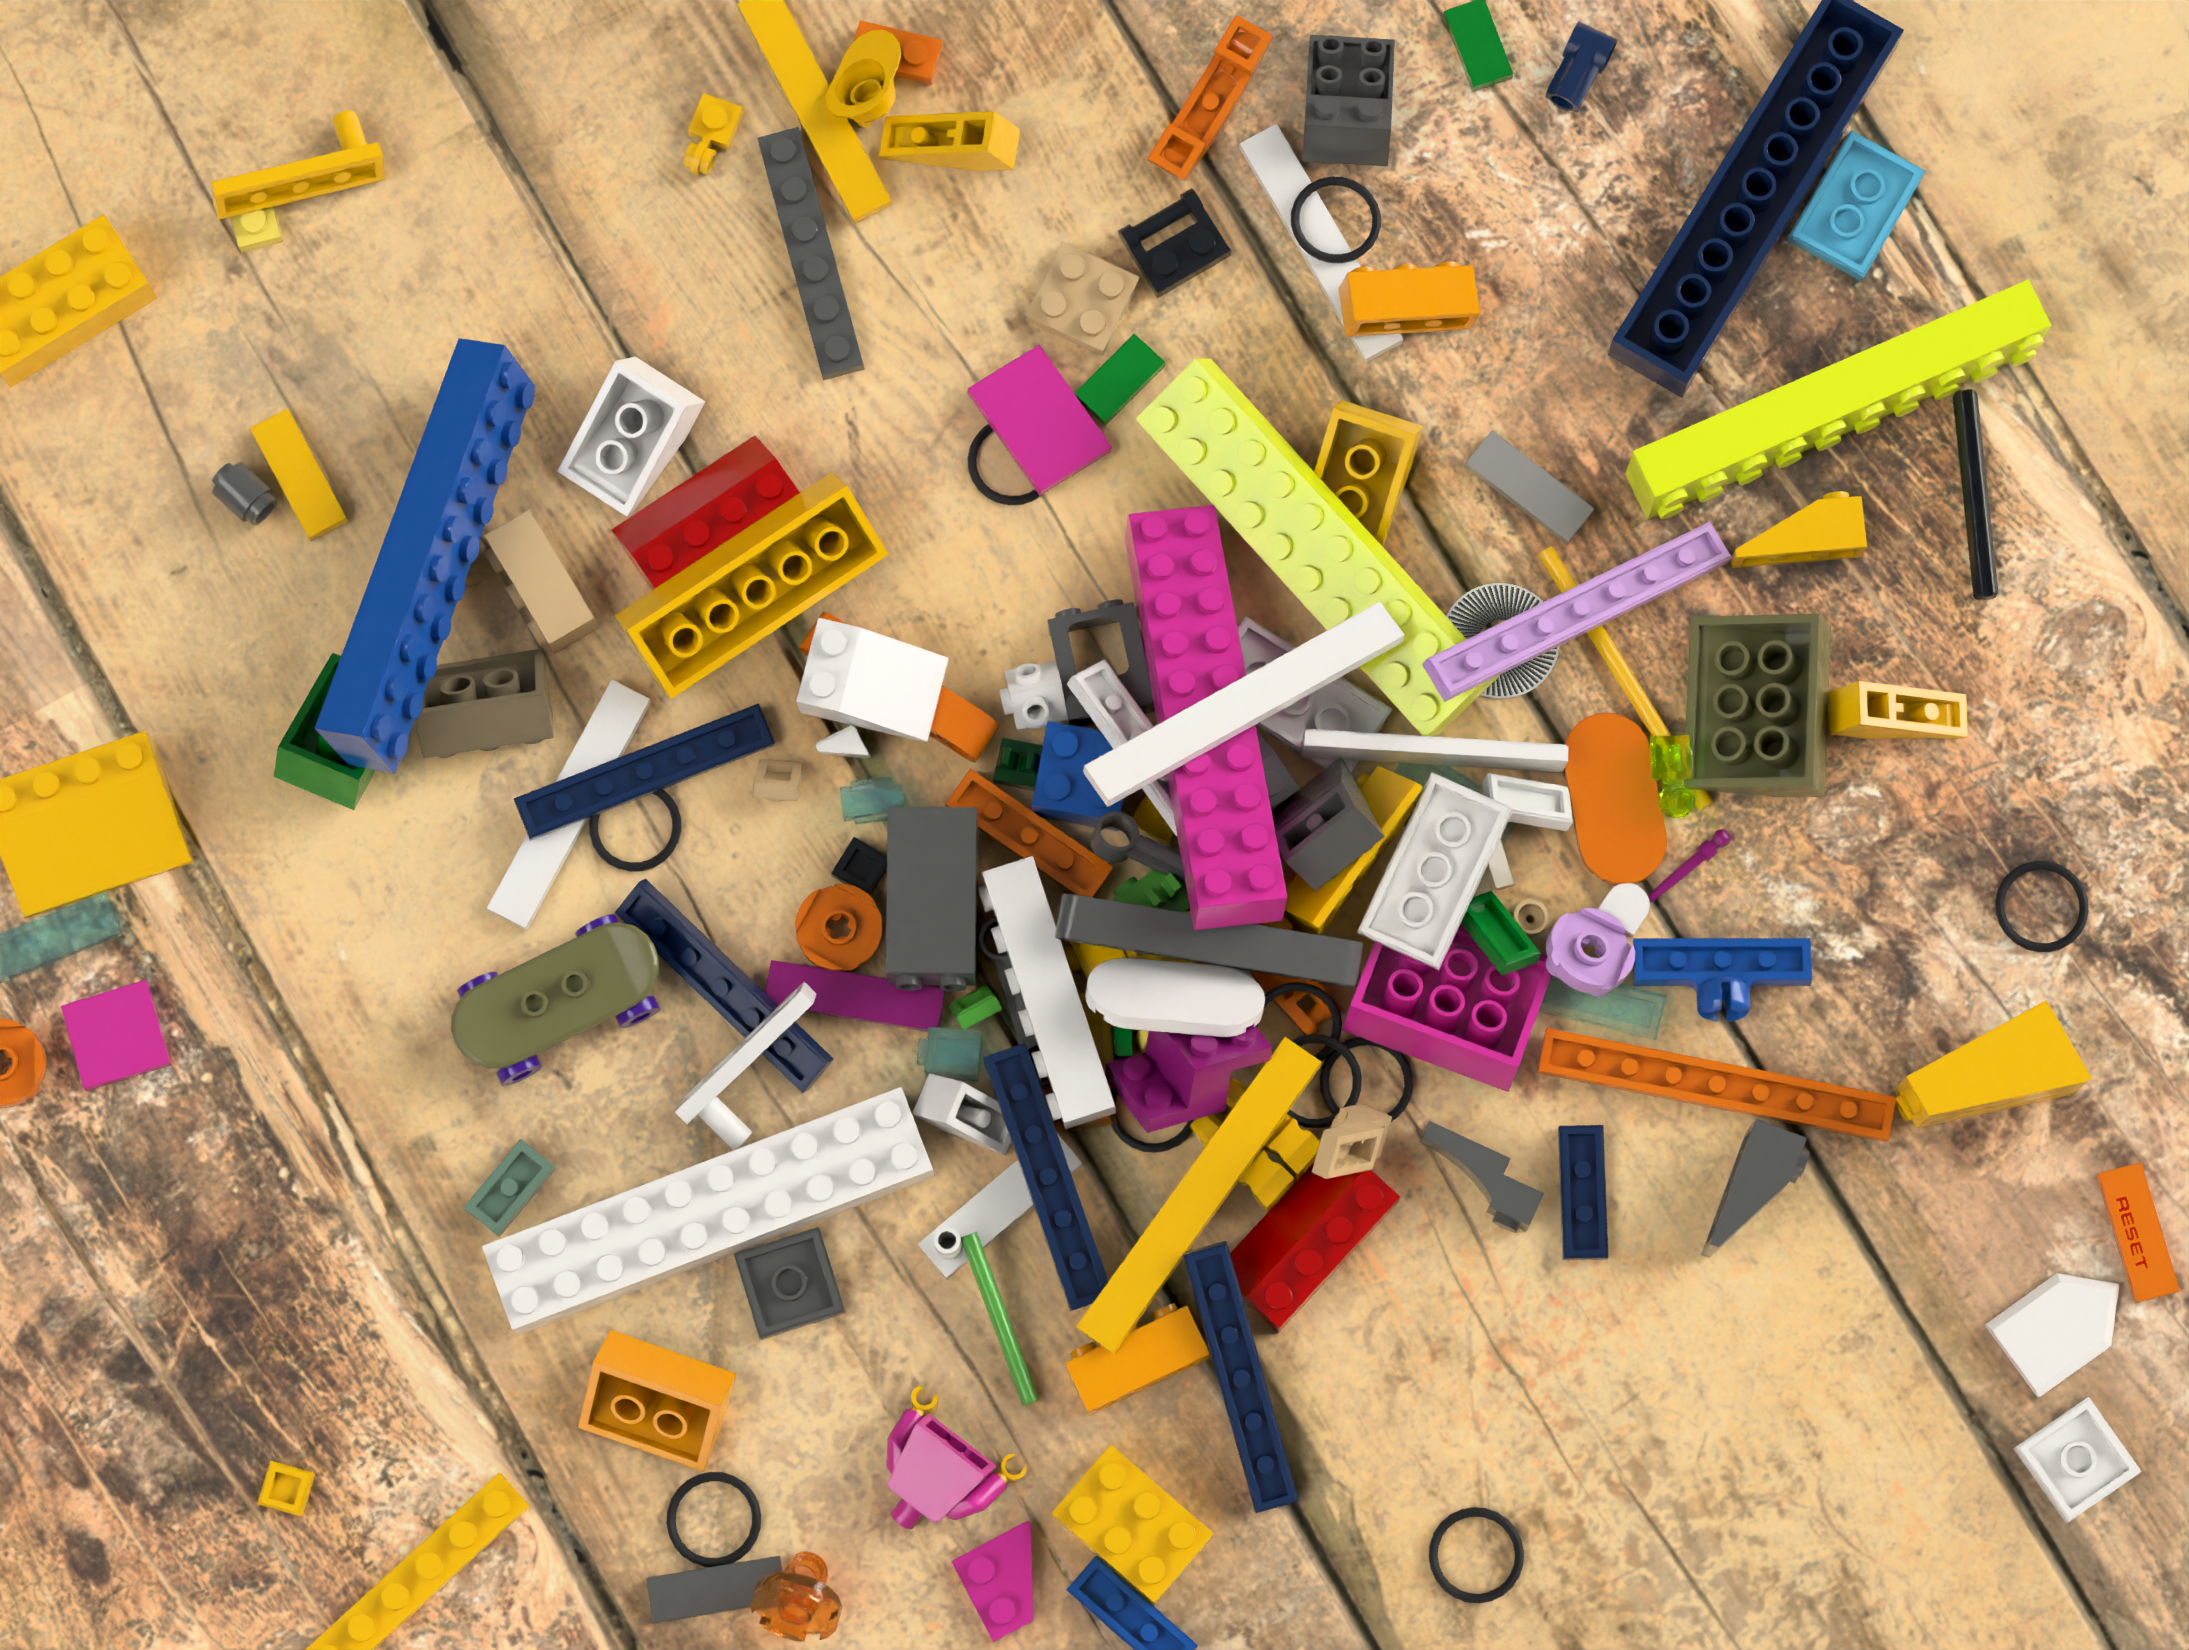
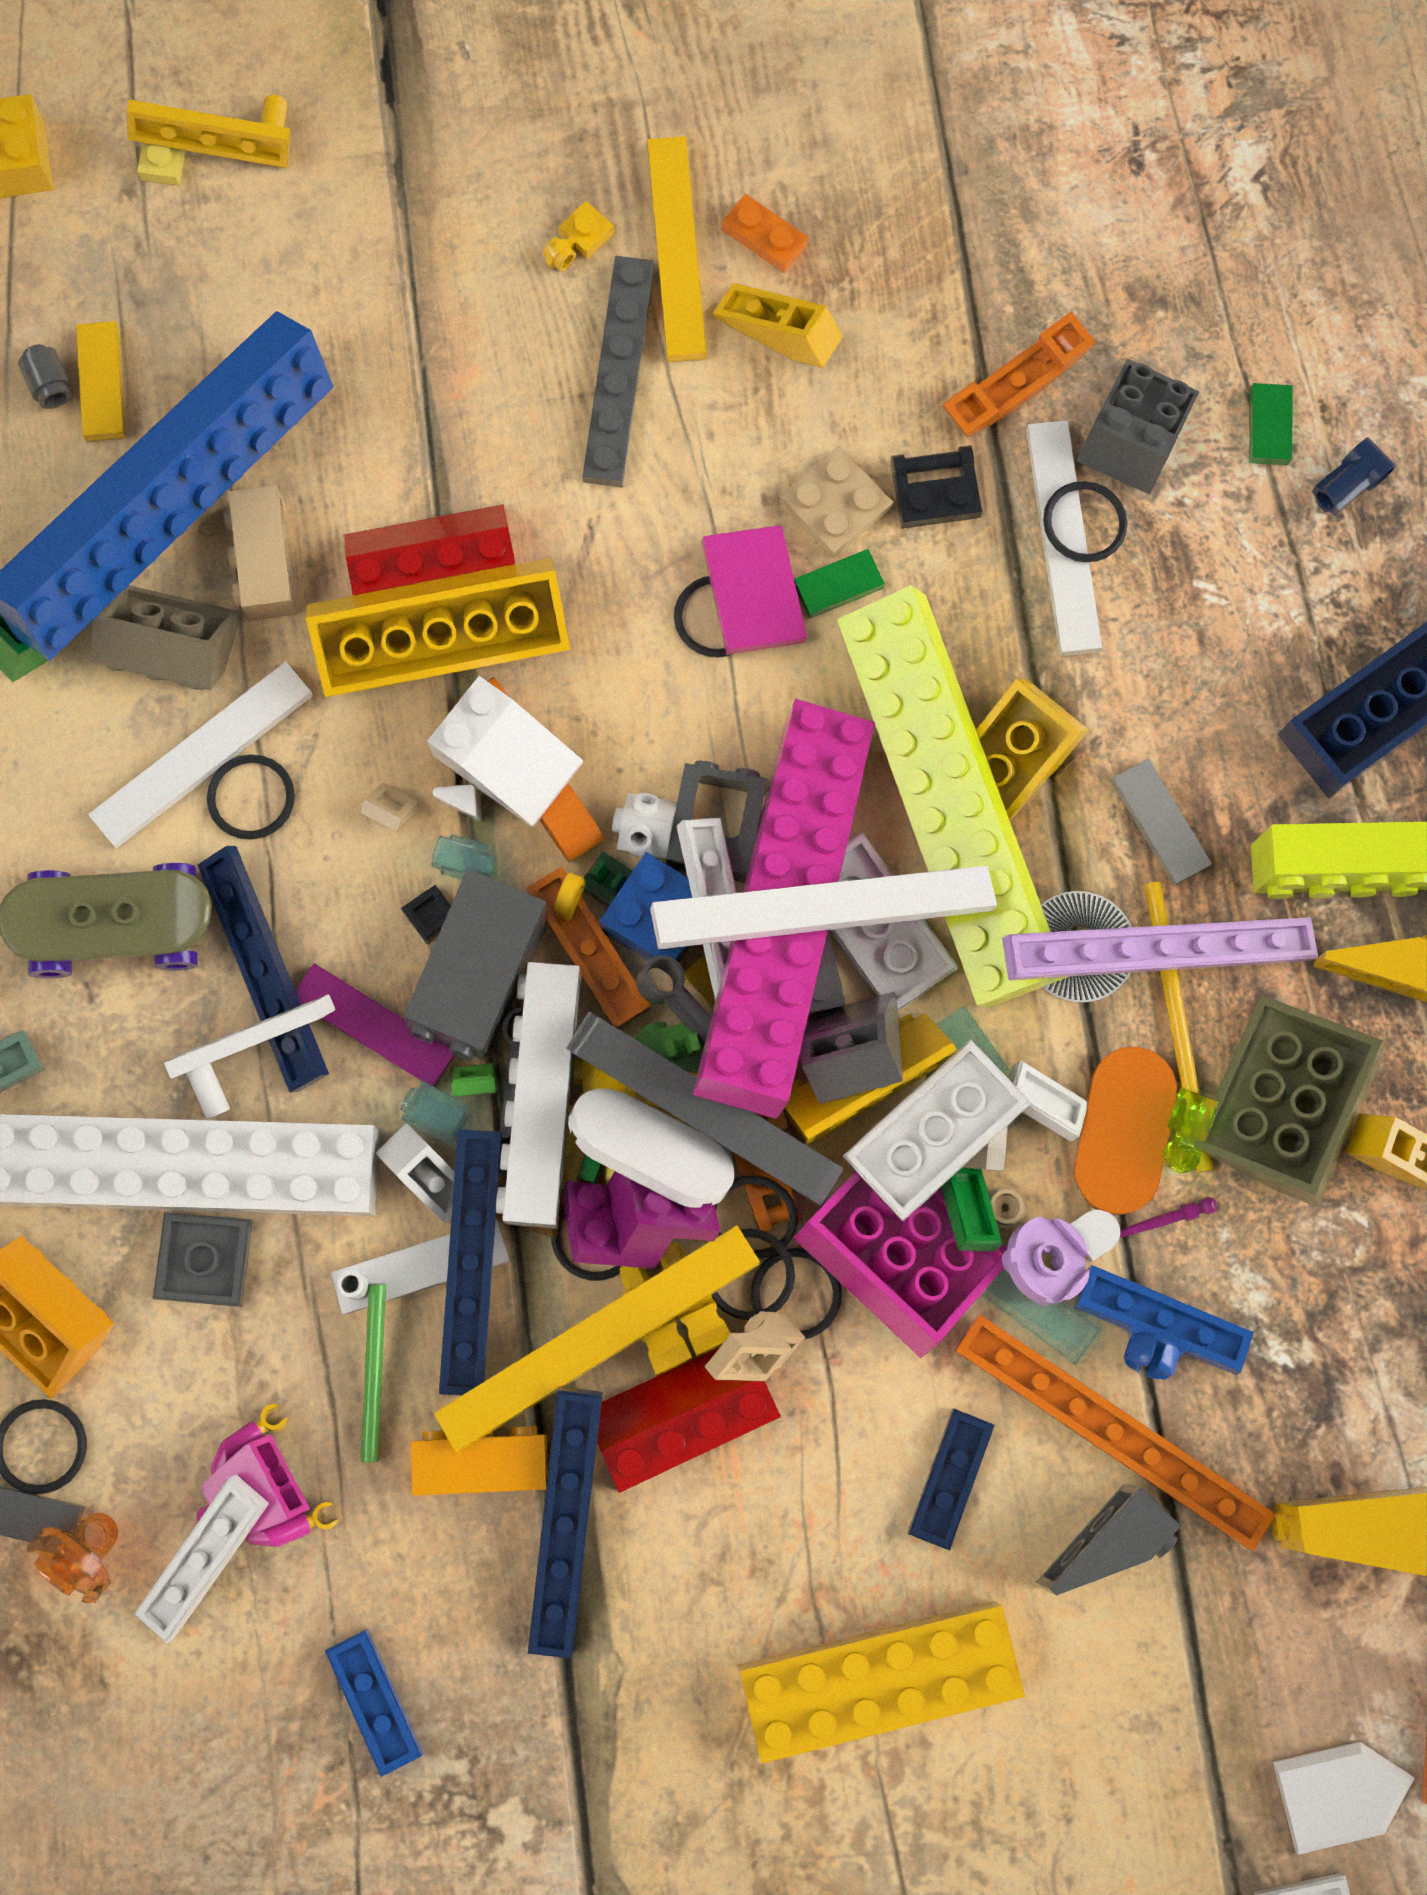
camera: 15 degrees right, 0 degrees up
(630, 434) = (395, 458): white slope -> none
(644, 772) = (276, 752): dark blue tile -> none
(832, 904) = (386, 935): orange plate -> none
(864, 78) = (726, 243): yellow piece -> none
(917, 1550) = (201, 1558): none -> white tile
(991, 793) = (569, 895): none -> yellow tile
(1000, 1580) = (268, 1616): dark pink wing -> none
(1132, 1524) = (409, 1619): yellow brick -> none
(1409, 299) = (1122, 614): light orange brick -> none
(1434, 750) = (981, 1020): white tile -> none
(1509, 1200) = (880, 1460): dark grey slope -> none
(1518, 1560) = (671, 1779): black tyre -> none
(1592, 1399) = (881, 1681): none -> yellow brick

